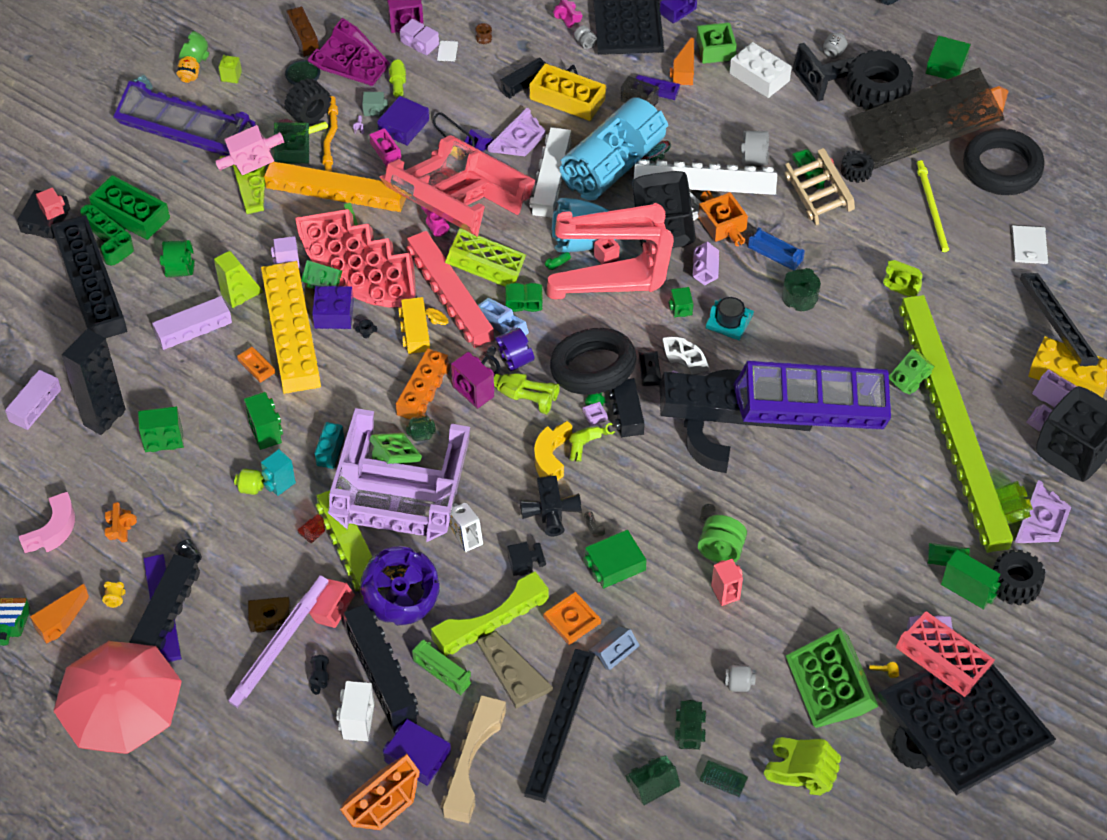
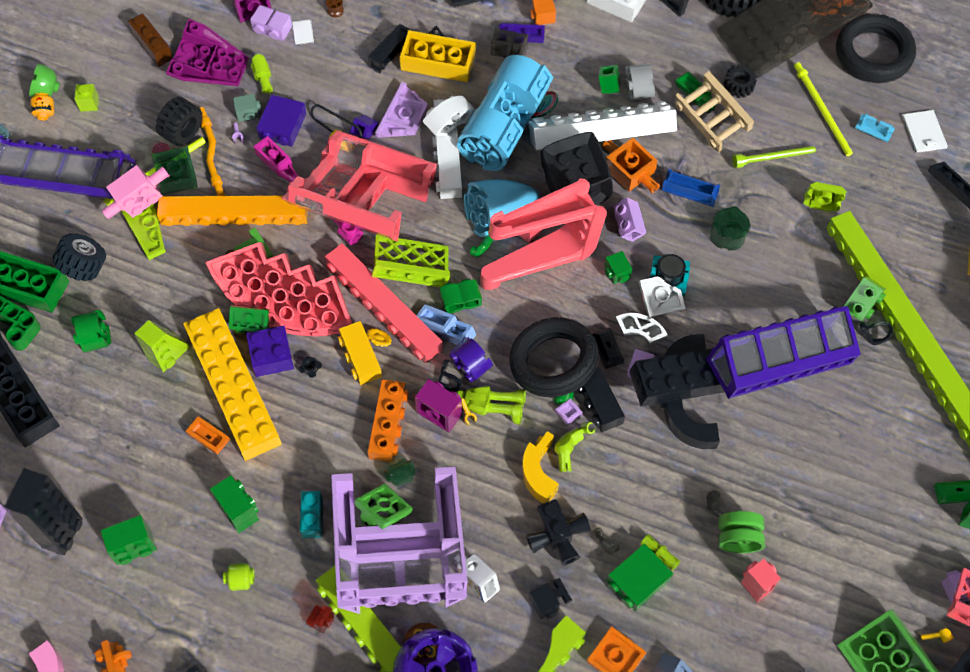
camera: 15 degrees left, 10 degrees up
(184, 195) = (79, 257): none -> black wheel
(192, 322) = (126, 402): lavender brick -> none
(278, 472) = (267, 563): teal brick -> none
(285, 251) = (203, 300): lavender piece -> none
(300, 71) = (162, 87): clear green wheel -> none
(499, 395) = (467, 412): none -> yellow hand
(558, 140) = (448, 115): none -> white brick
(644, 544) = (661, 552): none -> lime pin
(714, 334) = (660, 297): none -> white plate
(726, 140) = (609, 79): none -> green brick
(833, 234) = (740, 160): none -> lime piece
(903, 398) = (865, 330): none -> black piece
(979, 232) = (872, 127): none -> medium azure hinge

